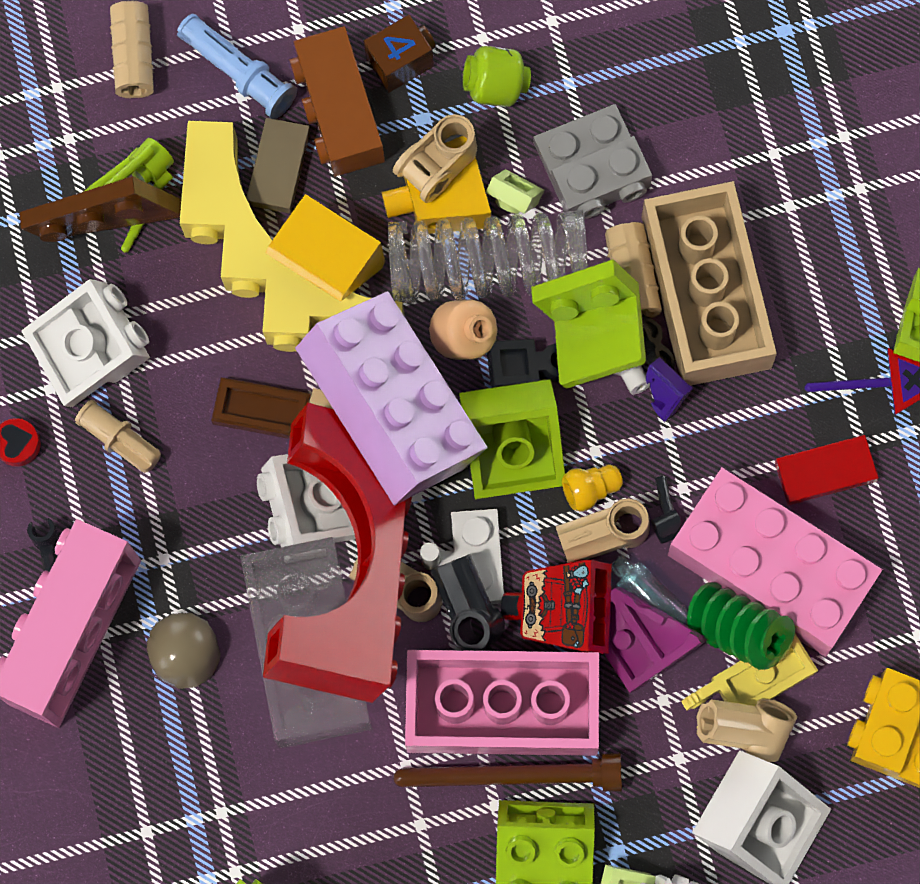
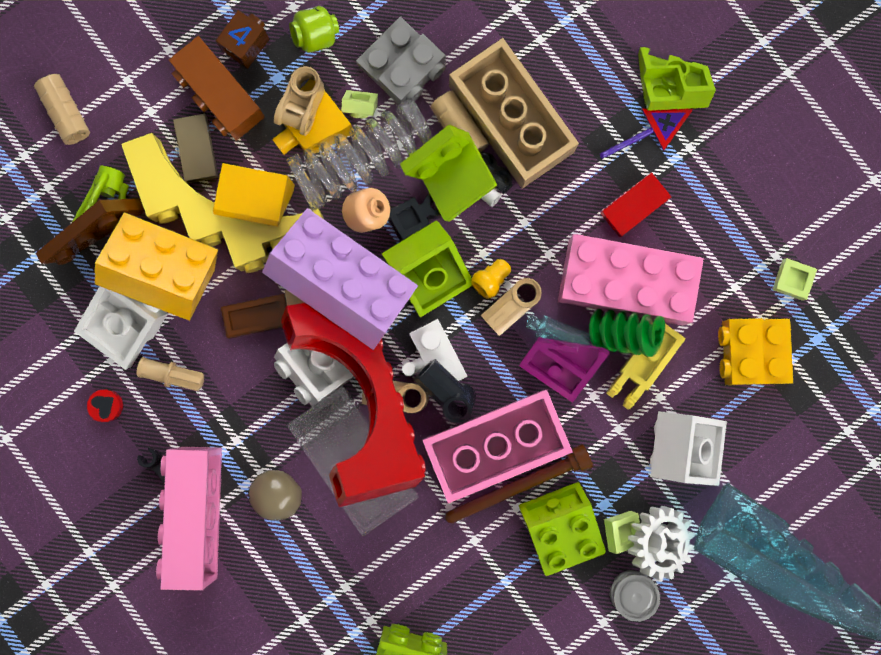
camera: 30 degrees left, 10 degrees up
(164, 289) = (155, 266): none -> yellow brick
(250, 76) = (150, 94): light blue pin -> none
(564, 605) = (510, 367): torso -> none
(666, 388) = (513, 194): dark purple tile -> none
(668, 524) = (551, 282): black hand -> none
(756, 729) = (663, 394): tan piece -> none

